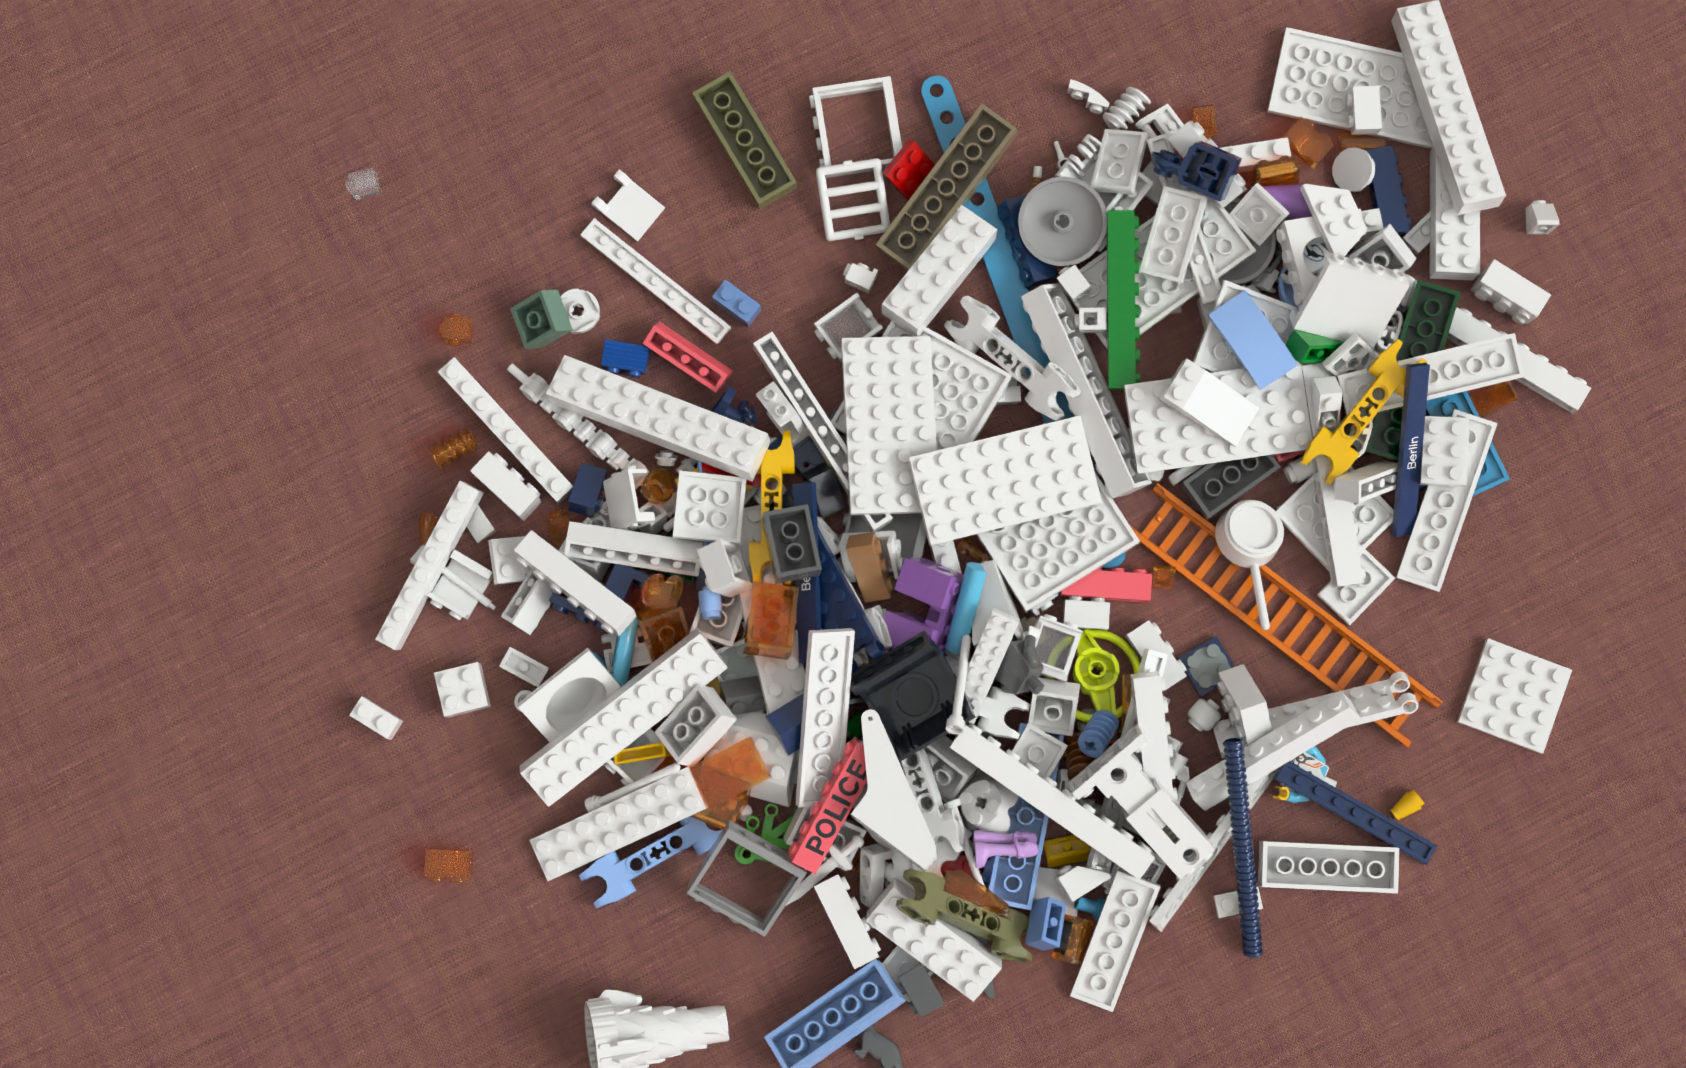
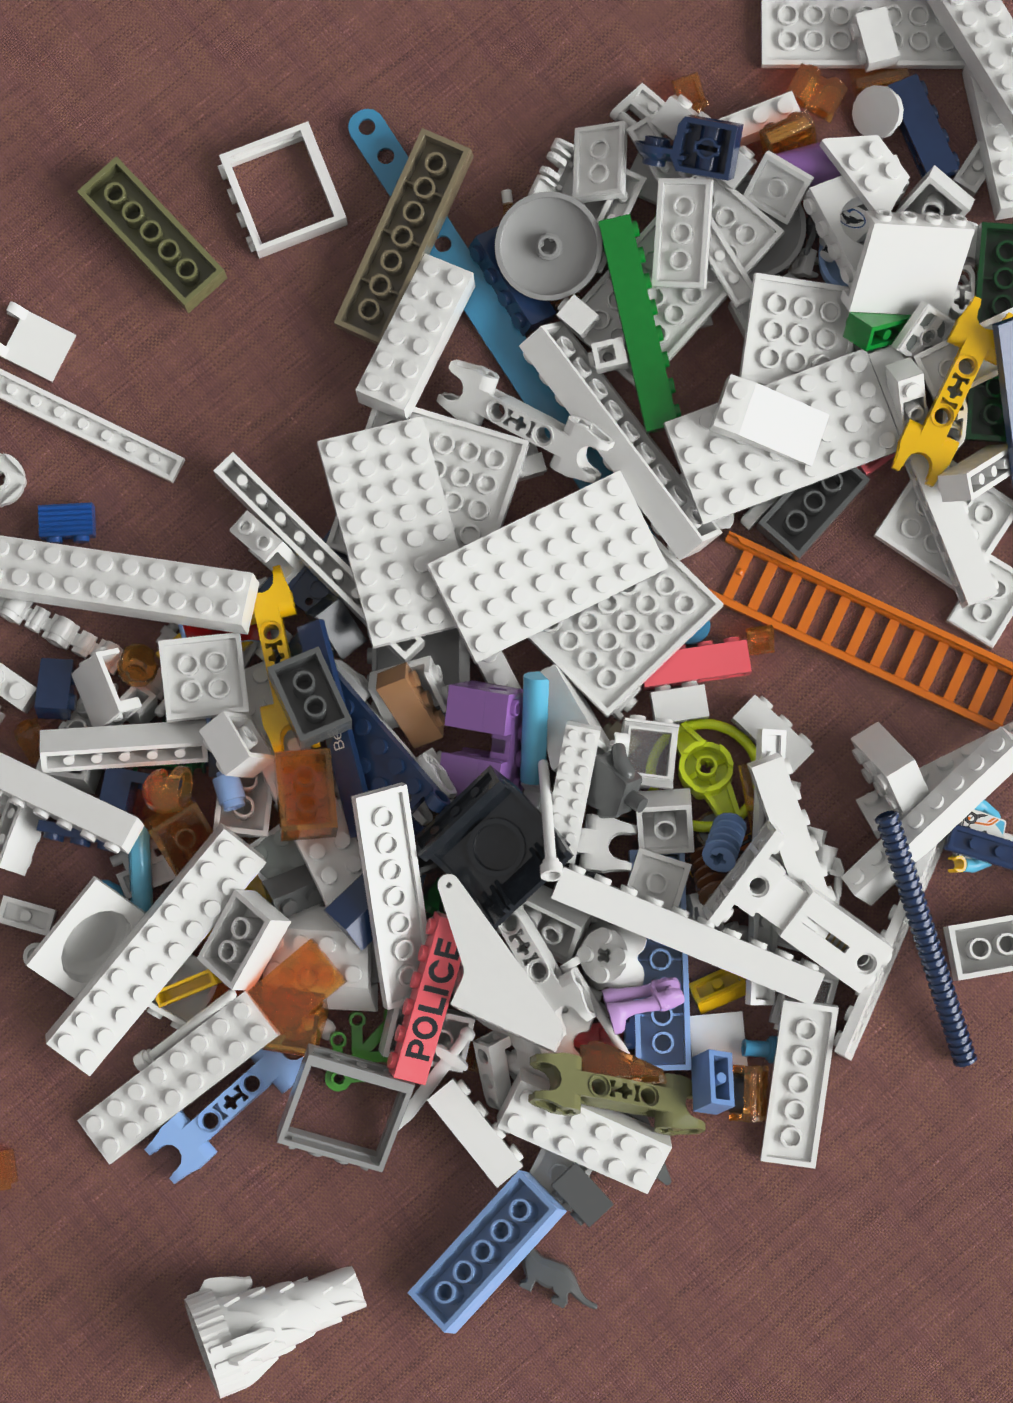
camera: 10 degrees left, 0 degrees up
(666, 458) = (141, 630): white plate -> none
(687, 357) = (140, 504): coral brick -> none
(736, 303) = (184, 428): medium blue brick -> none
(739, 414) = (218, 558): dark blue piece -> none
(825, 193) = (321, 252): white bar -> none
(847, 320) = (318, 420): window -> none
(860, 276) = (324, 365): white brick -> none
(908, 169) = (353, 225): red plate -> none
(965, 546) = (519, 656): clear orange bar -> none
(1060, 155) = (530, 172): white hand -> none
(1077, 880) = (740, 1022): white slope -> none
(1095, 101) = (557, 99): white slope -> none
(1124, 108) = (593, 99): white piece -> none
(1204, 715) = (845, 792): white head -> none
(1205, 664) = (832, 733): light grey piece -> none
(1227, 903) = (922, 1008): white plate -> none
(1250, 538) = (852, 572): white piece -> none
(1252, 339) = (803, 336): light blue slope -> none
(1298, 472) = (891, 481): white brick -> none
(1373, 222) = (914, 167): white brick -> none

